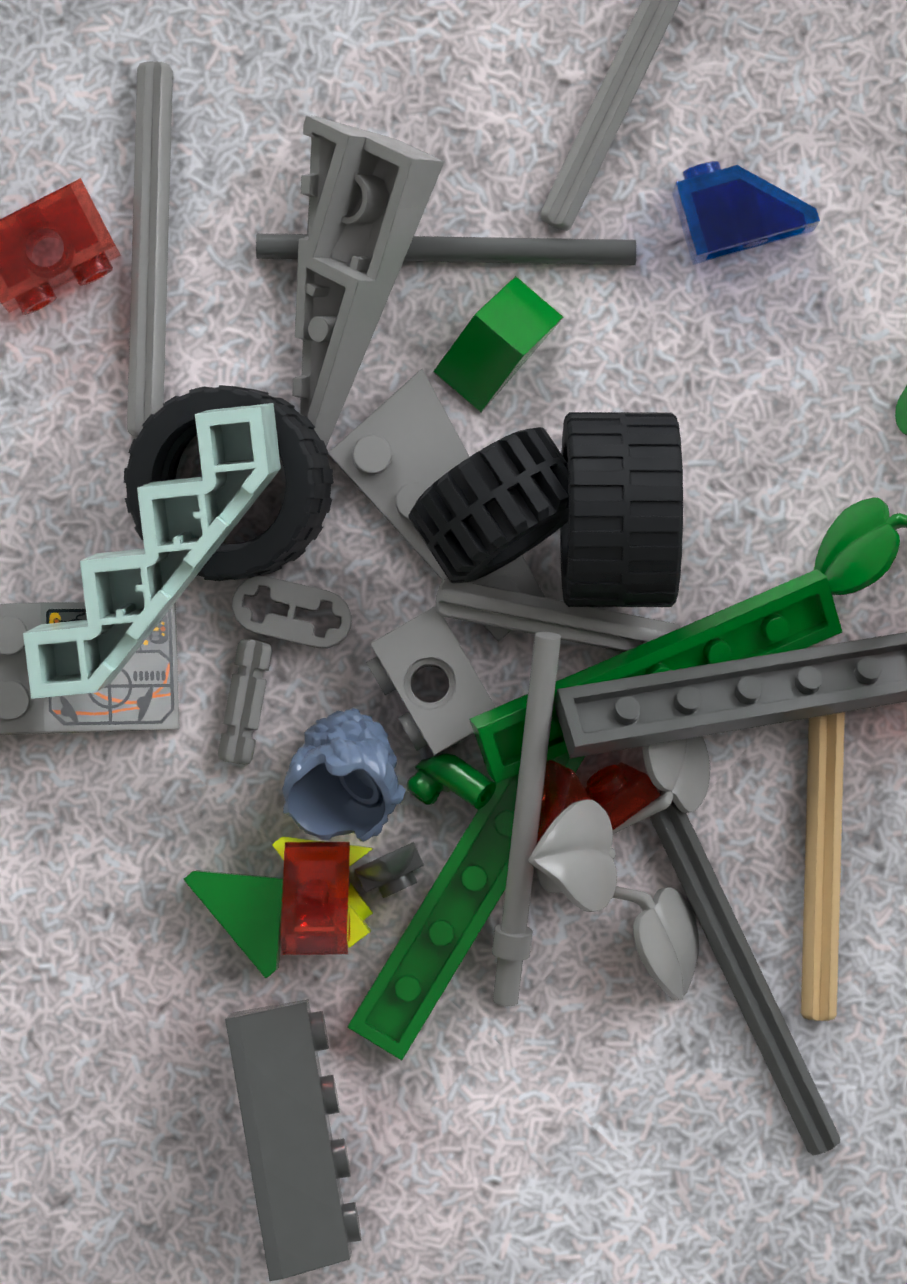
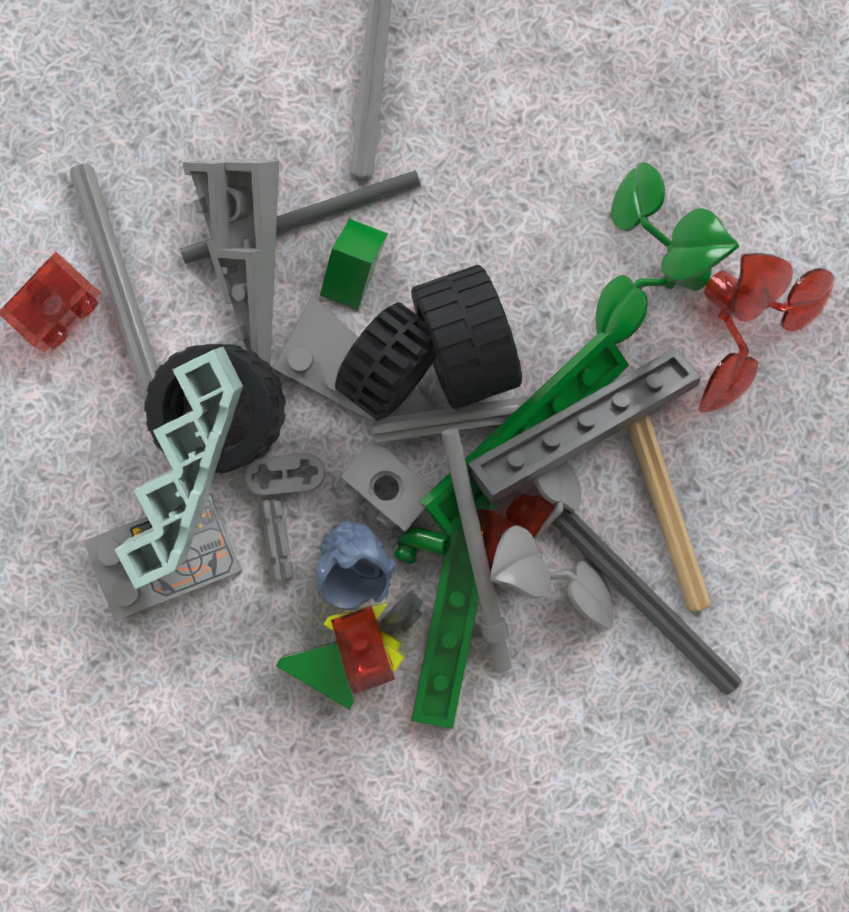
camera: 25 degrees left, 0 degrees up
(290, 1137) = (400, 804): dark grey slope -> none
(736, 211) = (471, 129): clear blue slope -> none

